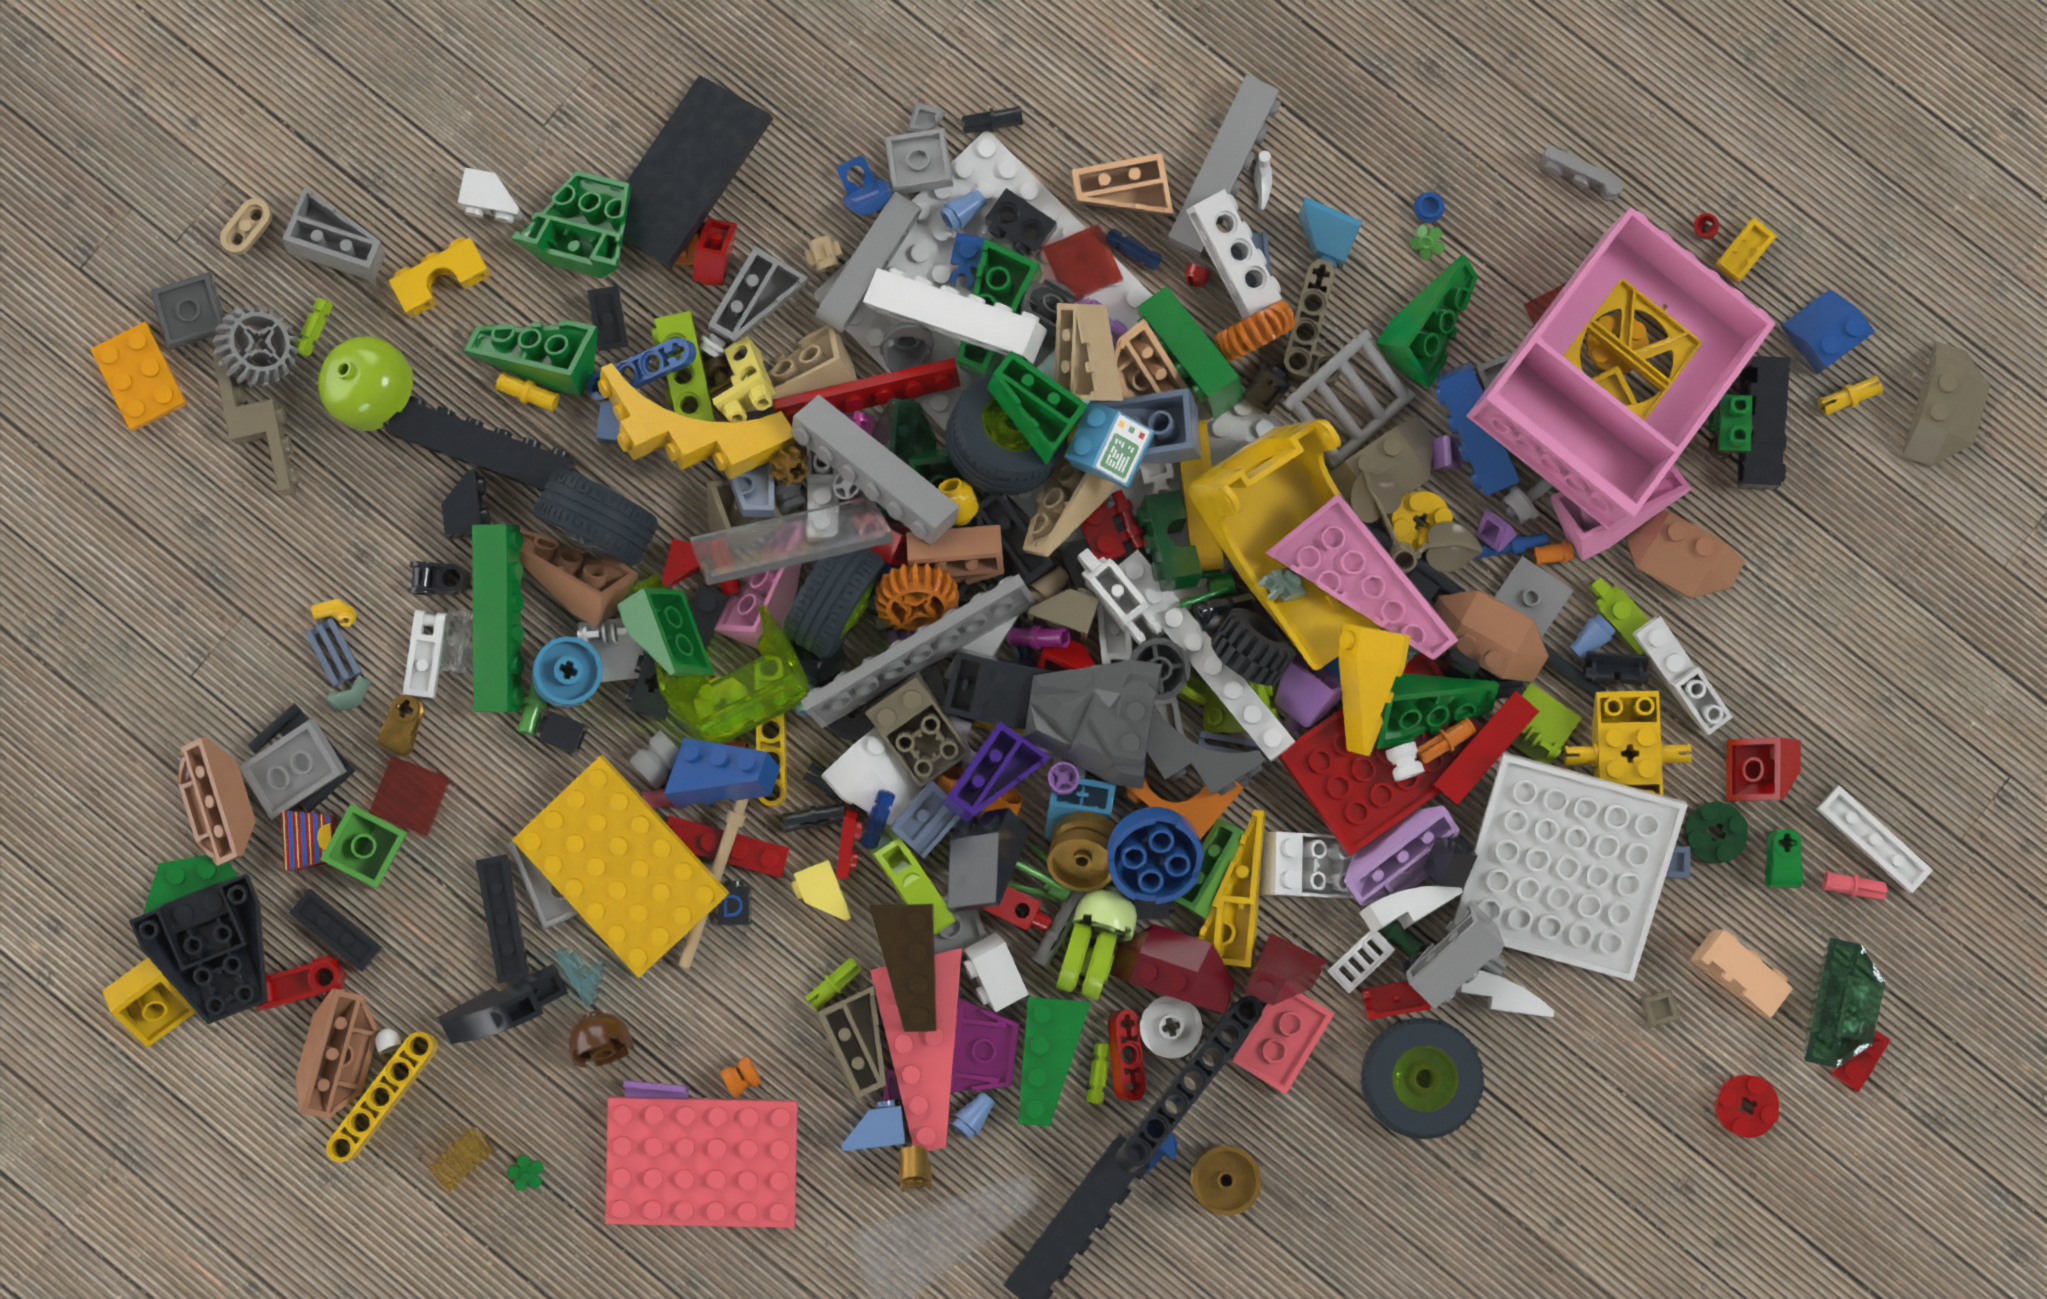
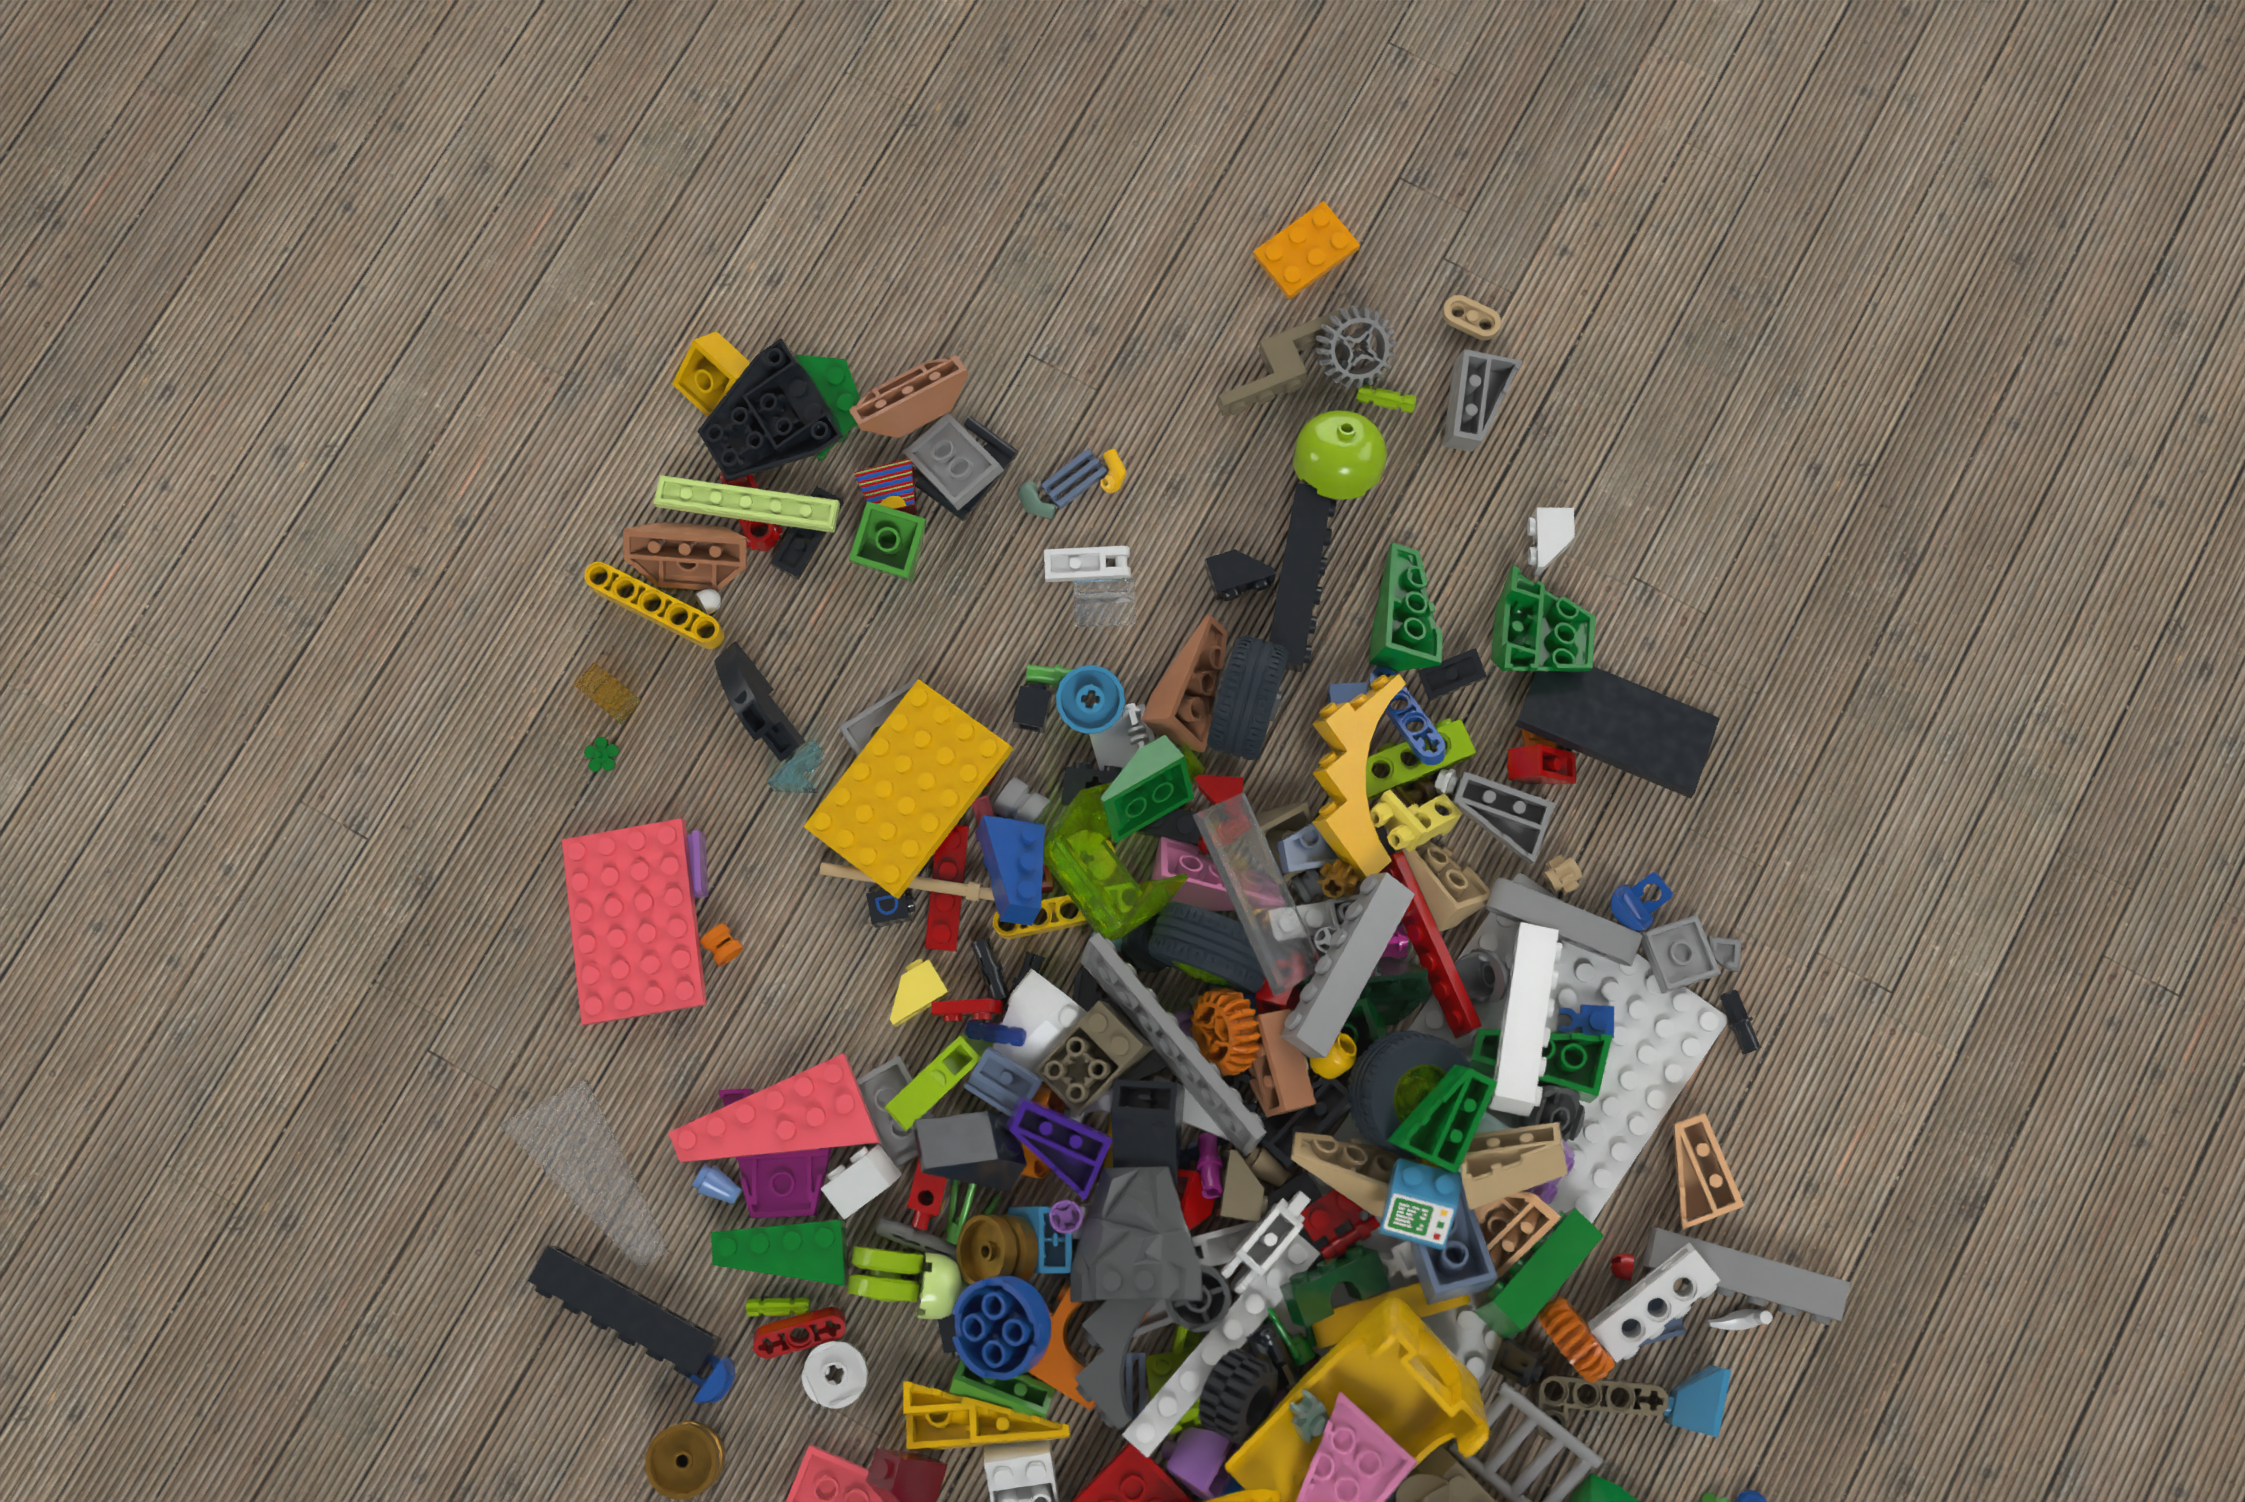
camera: 85 degrees right, 5 degrees down
(188, 310) = (1379, 280): dark grey plate -> none
(295, 984) = (747, 503): none -> yellowish green tile
(401, 729) = (1009, 555): pearl gold piece -> none
(409, 795) = (947, 576): clear red tile -> none
(415, 284) = (1446, 484): yellow arch -> none
(432, 577) = (1162, 556): black piece -> none
(497, 618) = (1132, 623): green brick -> none
(502, 918) = (842, 686): black plate -> none
(527, 392) = (1363, 611): yellow pin -> none
(599, 1039) = (738, 799): reddish brown cylinder -> none
(833, 983) = (827, 1020): lime axle -> none
(855, 1041) = (771, 1051): dark tan wedge -> none
(878, 1128) = (689, 1090): medium blue slope -> none
(909, 956) = (861, 1090): dark brown wing -> none
(914, 1168) = (652, 1135): pearl gold piece -> none
(960, 211) = (1638, 1007): medium blue cone -> none
(1025, 218) = (1644, 1074): black brick -> none
(1083, 262) = (1610, 1143): clear red tile -> none
(1133, 249) = (1636, 1193): dark blue axle -> none
(1175, 967) = (893, 1369): dark red wedge -> none
(1178, 1092) = (763, 1393): black beam -> none

